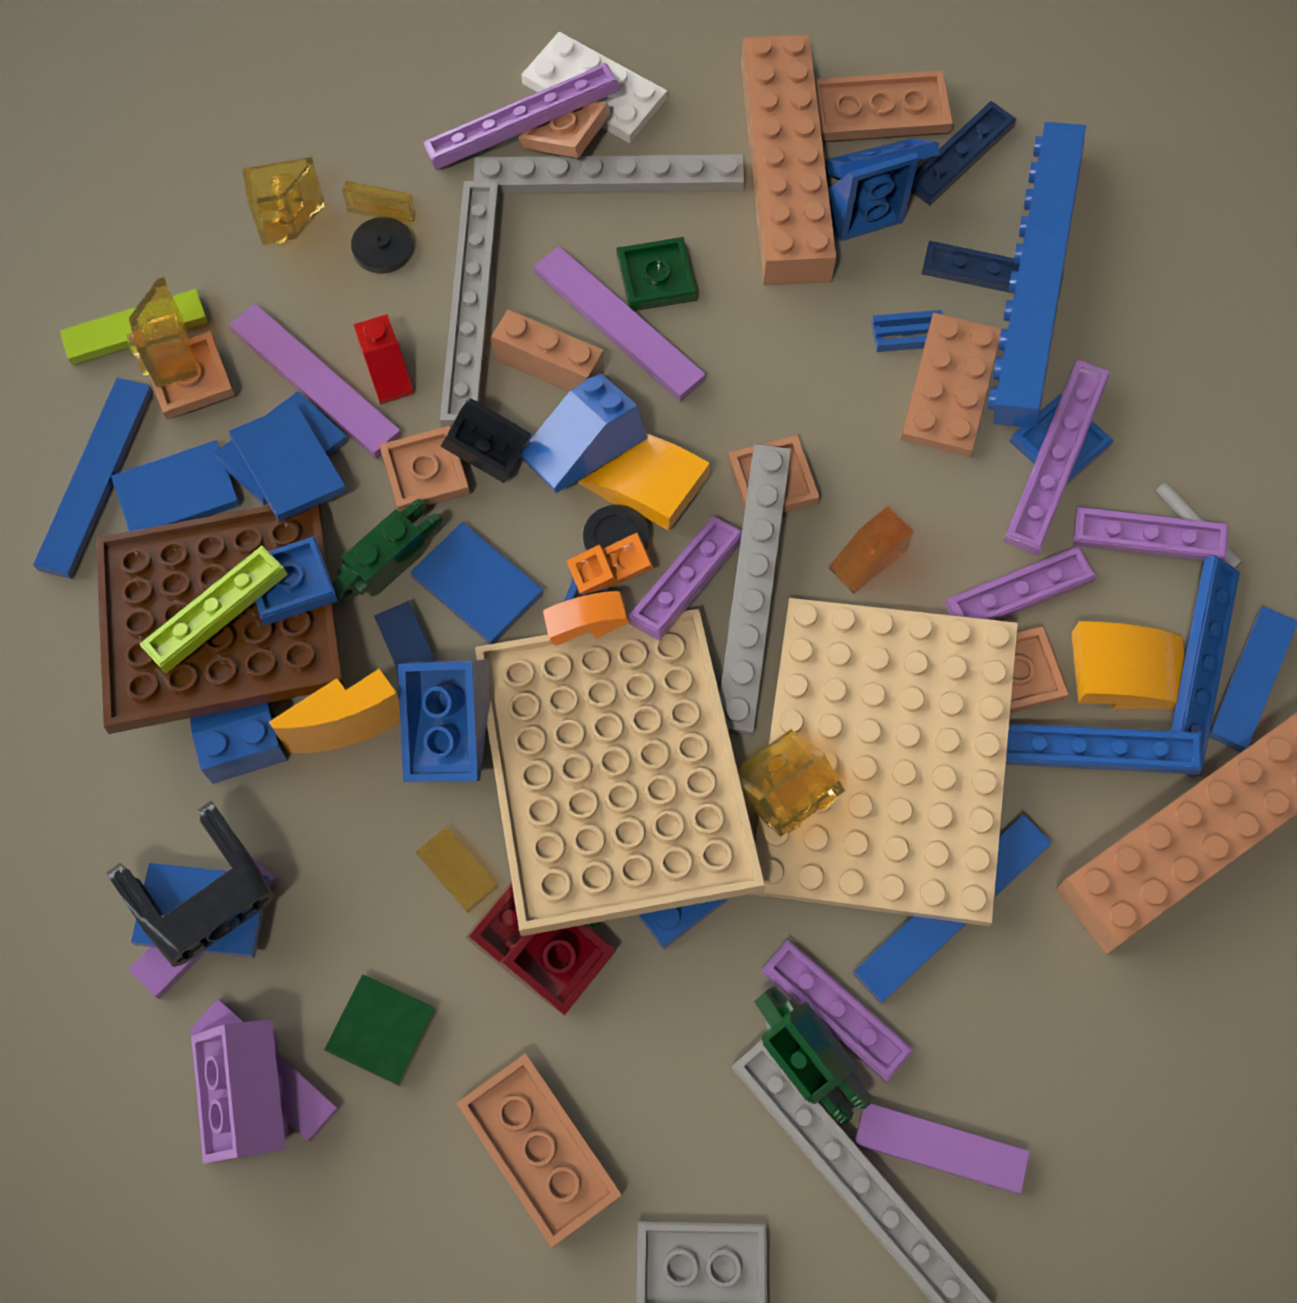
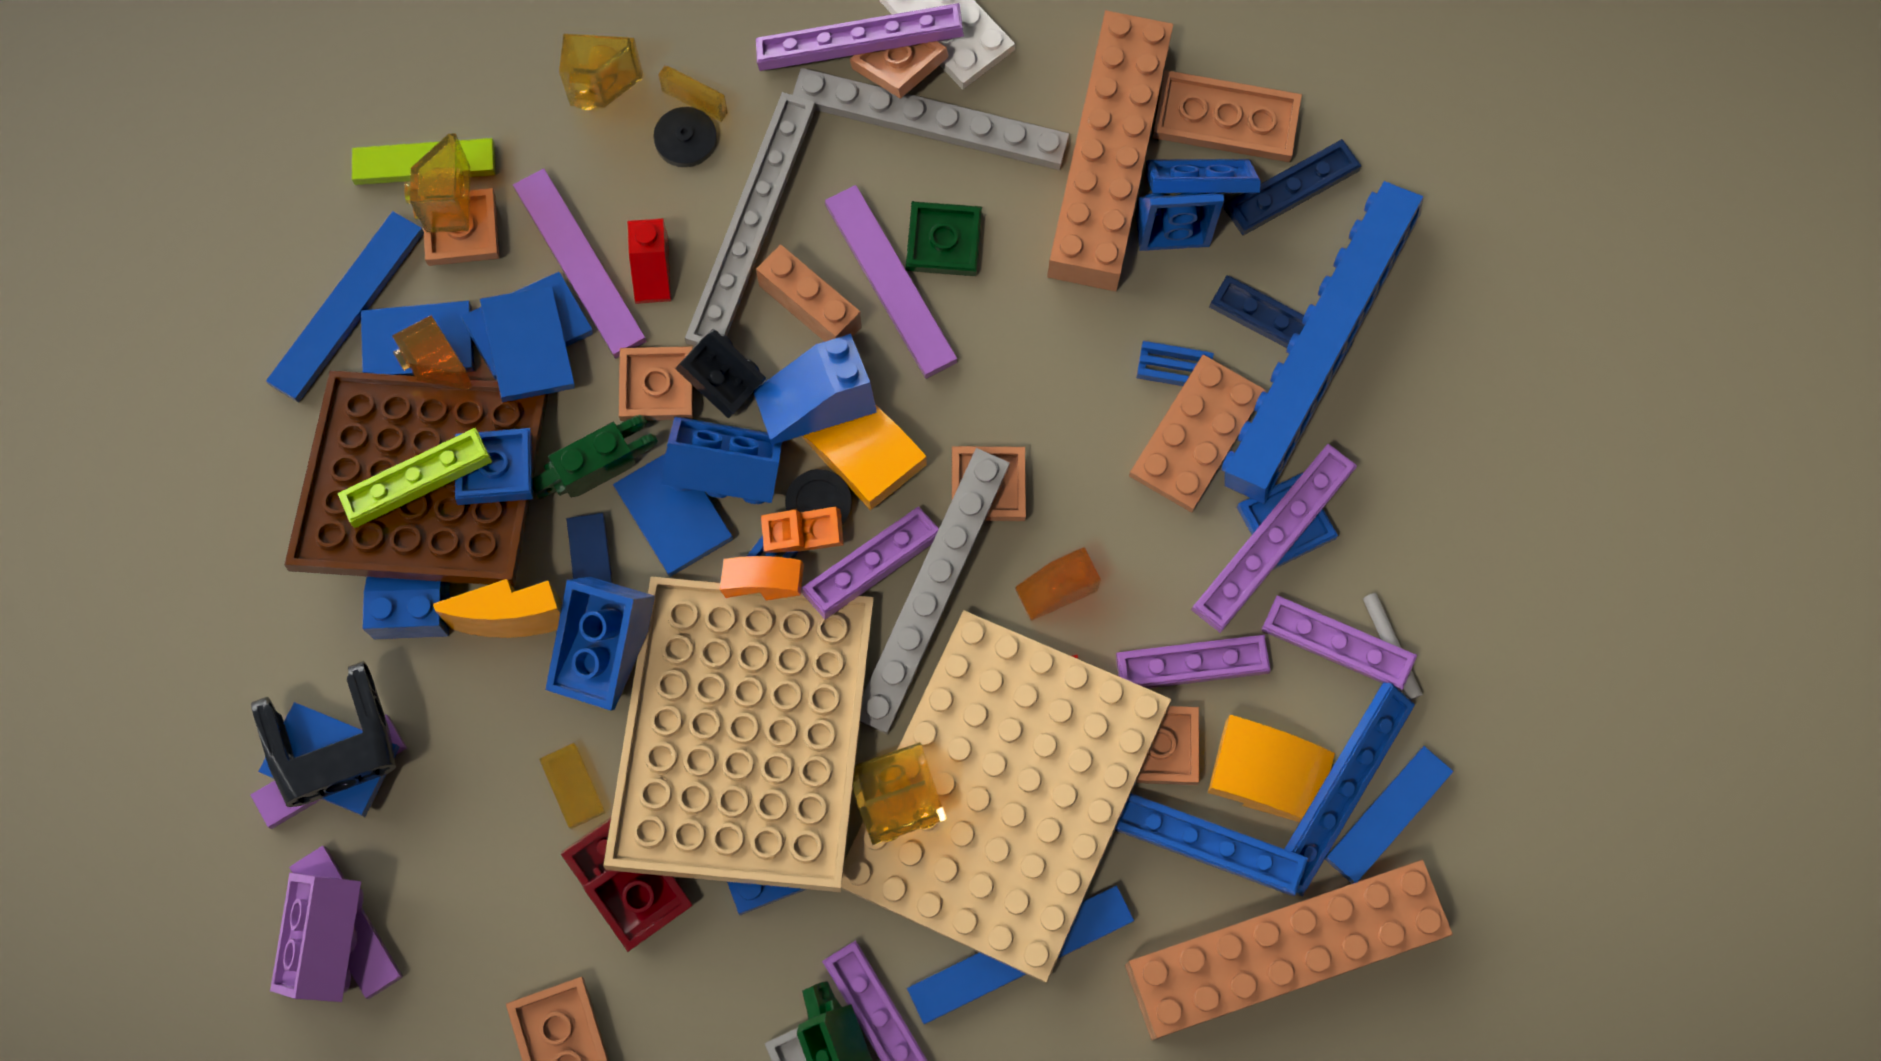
camera: 15 degrees right, 5 degrees up
(195, 495) = (429, 355): none -> clear orange slope
(380, 1030) = (459, 916): dark green tile -> none
(512, 521) = (721, 461): none -> blue slope

